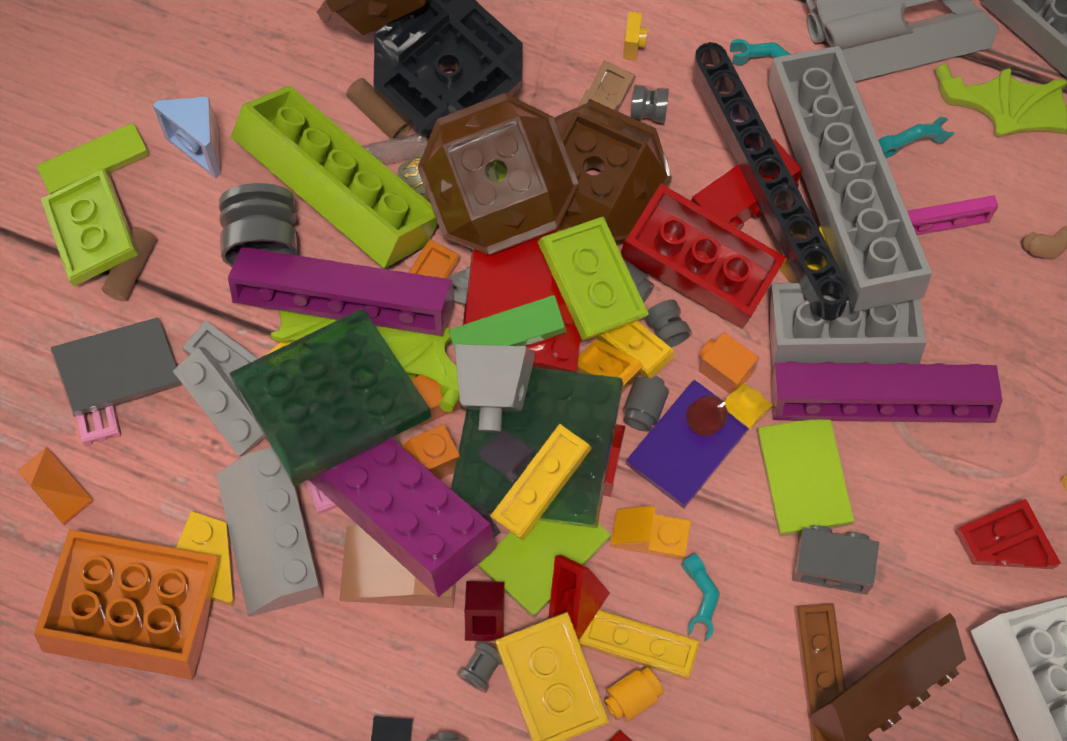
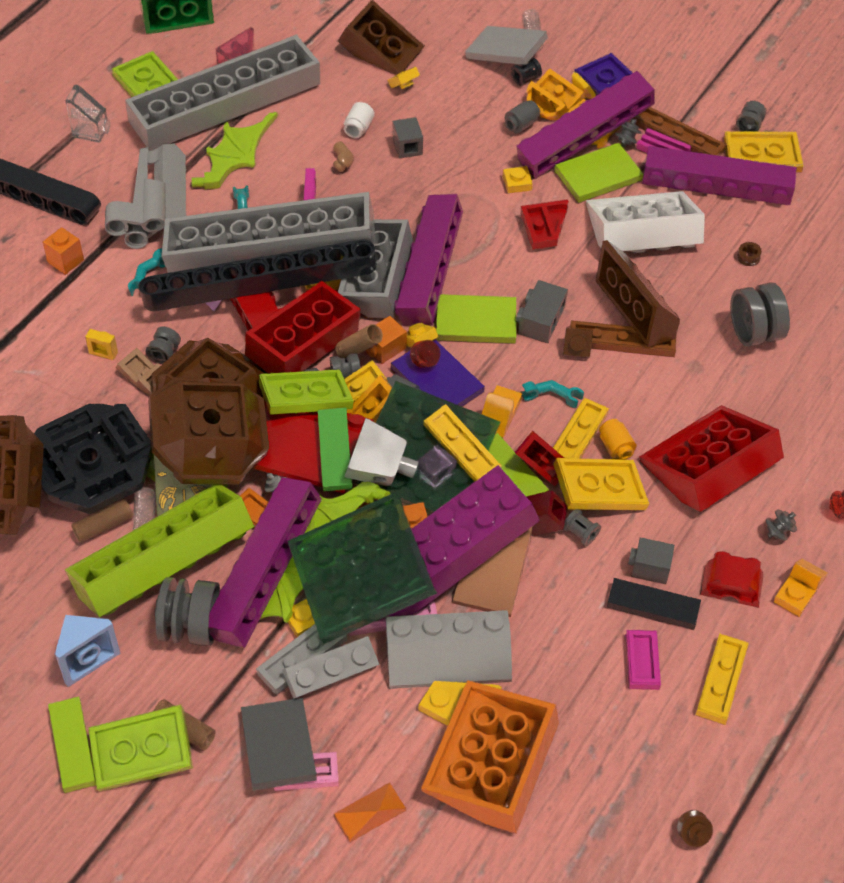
camera: 80 degrees left, 15 degrees down
(703, 339) = (359, 341): none -> medium nougat piece
(792, 617) = (577, 342): none -> reddish brown plate

